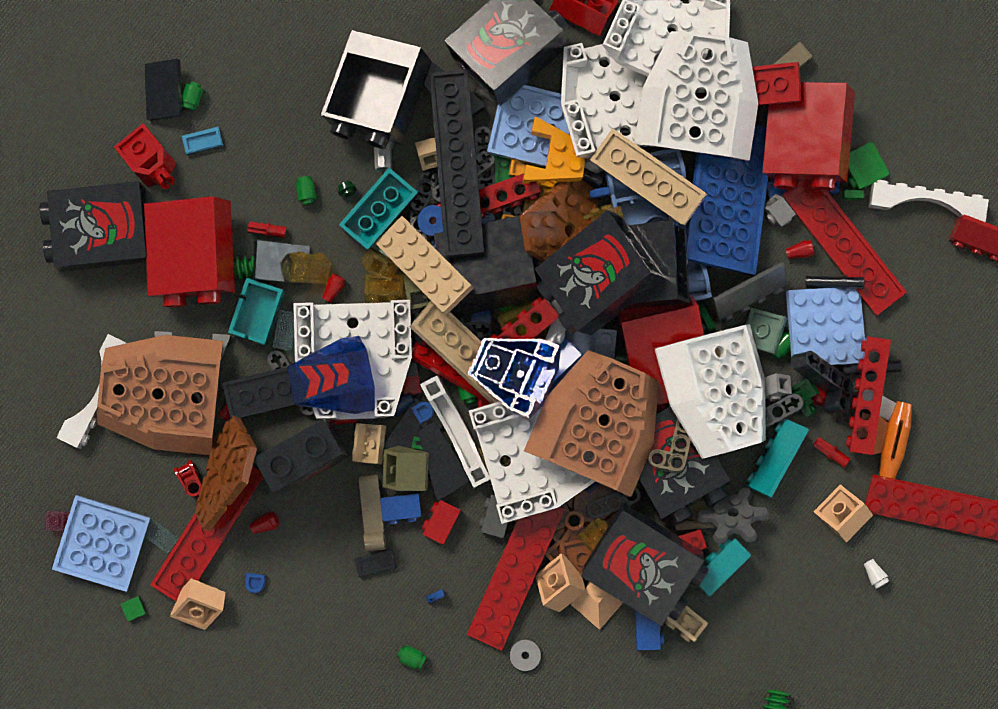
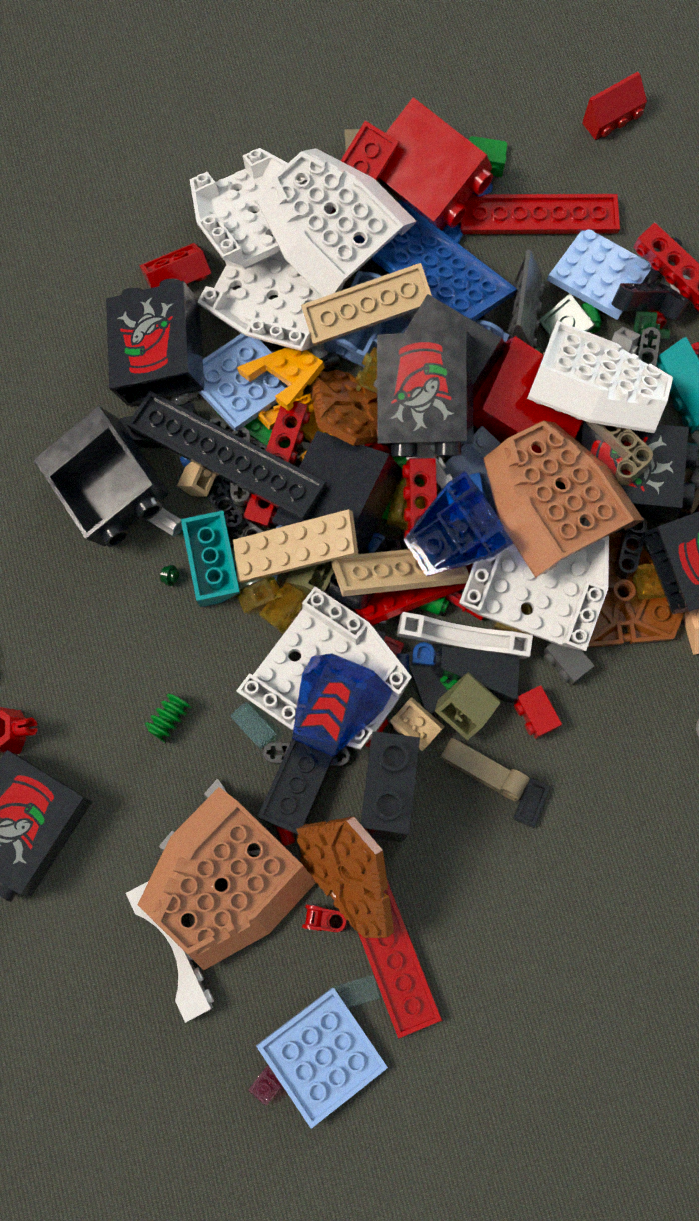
camera: 60 degrees left, 10 degrees down
(133, 608) = (408, 1073): green tile -> none
(189, 250) = (109, 753): red brick -> none
(198, 604) = (453, 1002): light nougat slope -> none
(202, 140) = (20, 671): dark azure tile -> none
(255, 582) = (468, 931): blue tile -> none
(258, 313) = (216, 736): teal piece -> none
(266, 522) = (419, 878): red cone -> none
(267, 229) = (148, 672): red axle -> none
(273, 261) = (188, 679): tile -> none
(306, 190) = (141, 611): green brick -> none
(309, 267) = (214, 658): clear yellow bracket -> none
(333, 287) = (247, 650): red cone -> none
(401, 507) = (499, 738): blue brick -> none
(411, 657) = (646, 833): green brick -> none
(424, 220) = (249, 516): blue piece -> none
(435, 596) = (603, 764): blue tile -> none
(514, 577) = (638, 687): red plate -> none
(559, 583) = (671, 646): light nougat slope -> none
(599, 193) = (346, 363): blue tile -> none
(778, 211) = (473, 239): light grey brick -> none
(800, 250) = (518, 248): red cone -> none
(835, 282) = (573, 232): black pin -> none
(855, 195) = (503, 179): green tile -> none
(886, 196) = (524, 154): white arch -> none

